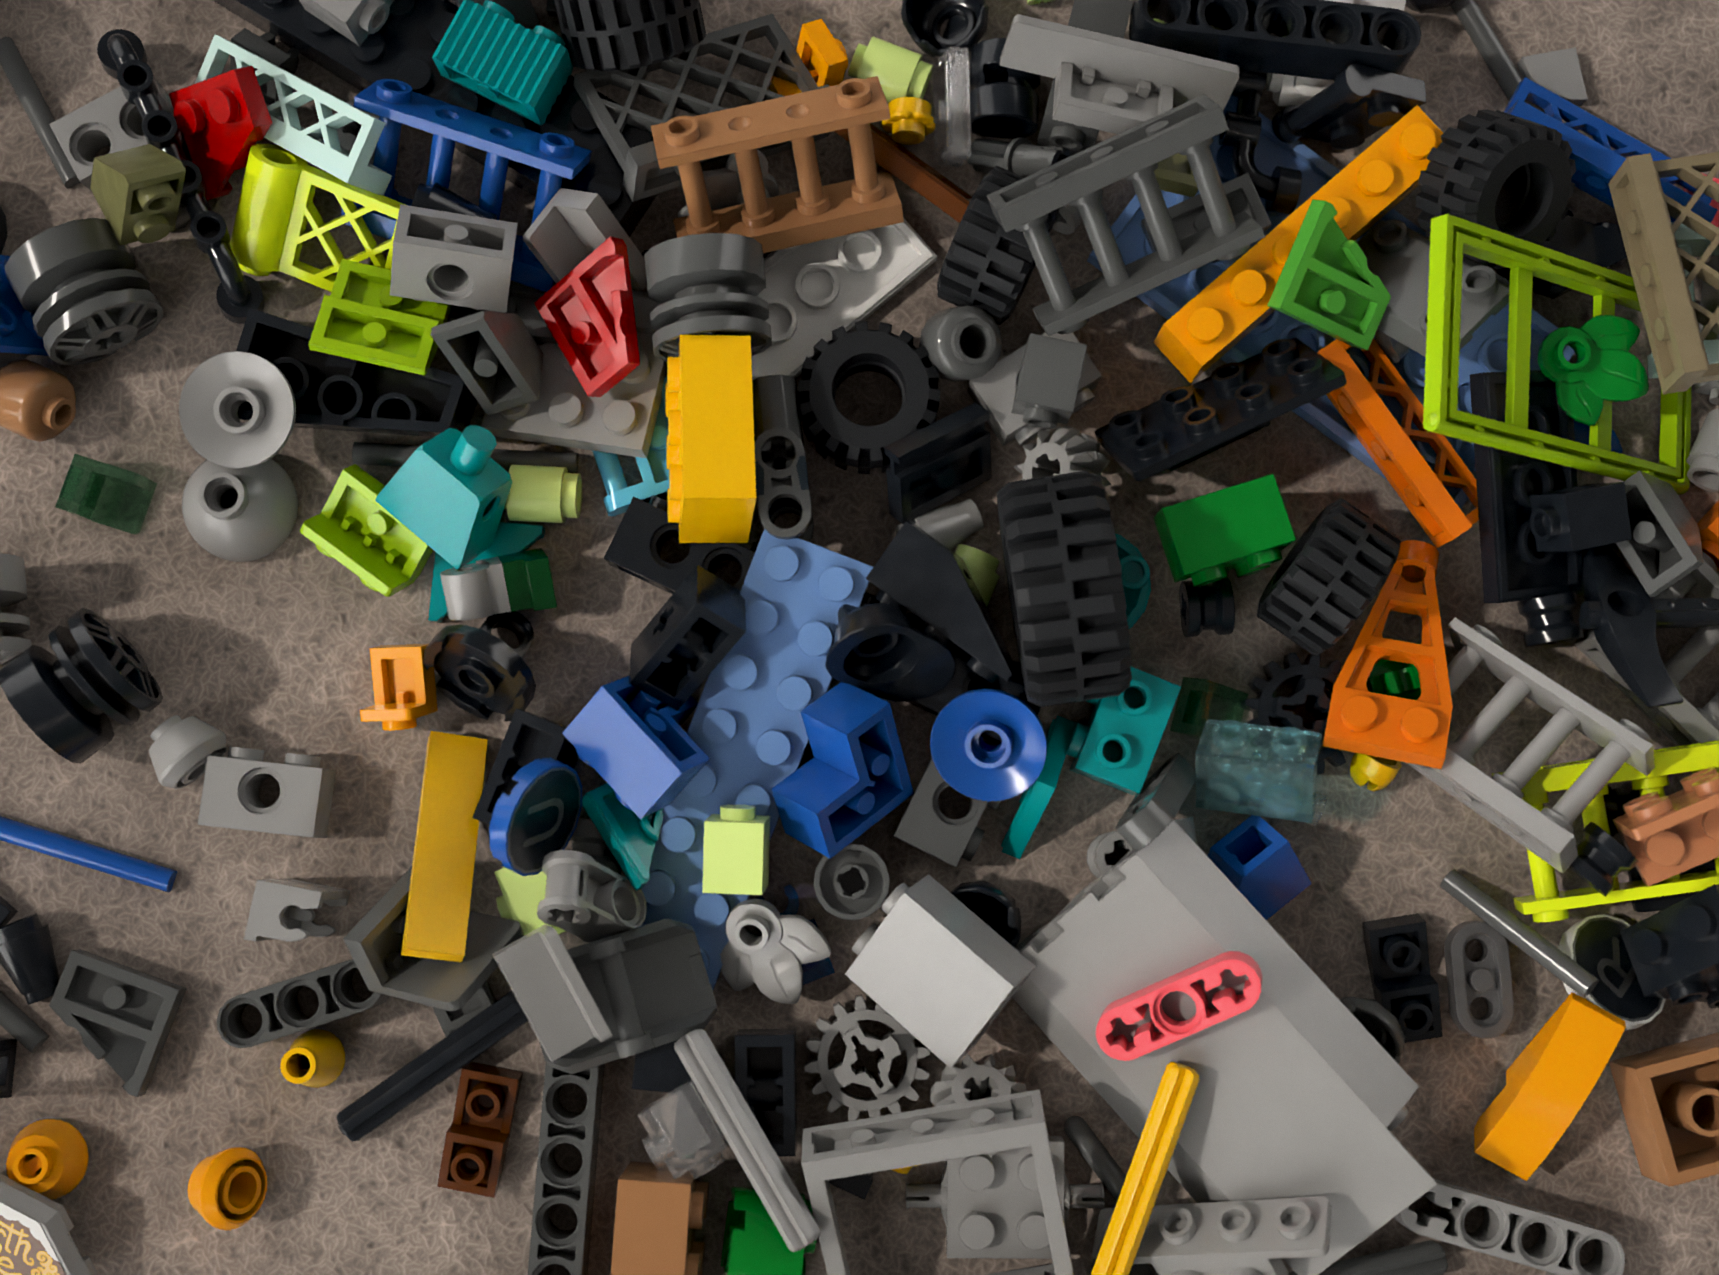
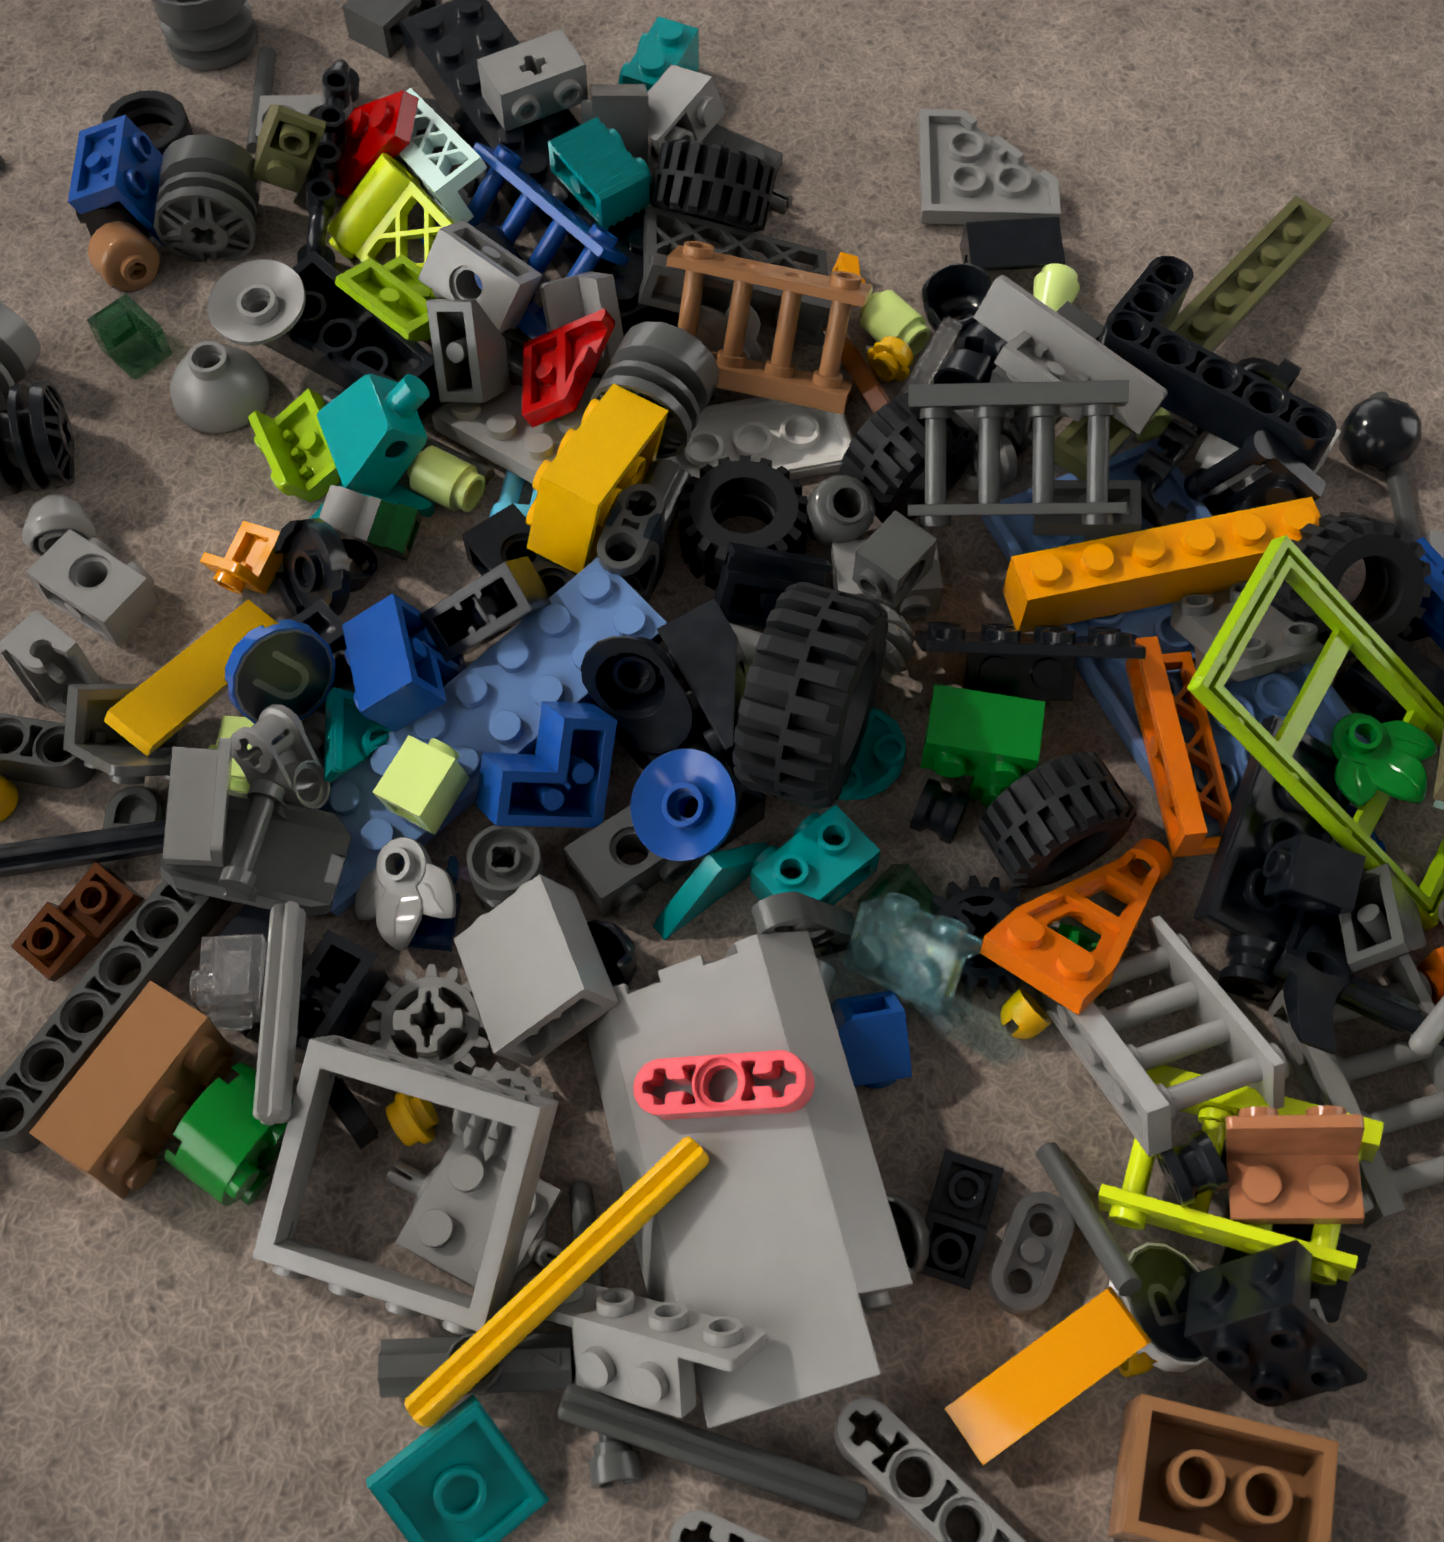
camera: 30 degrees right, 20 degrees down
(1330, 282) = (1169, 583): bright green wing -> none

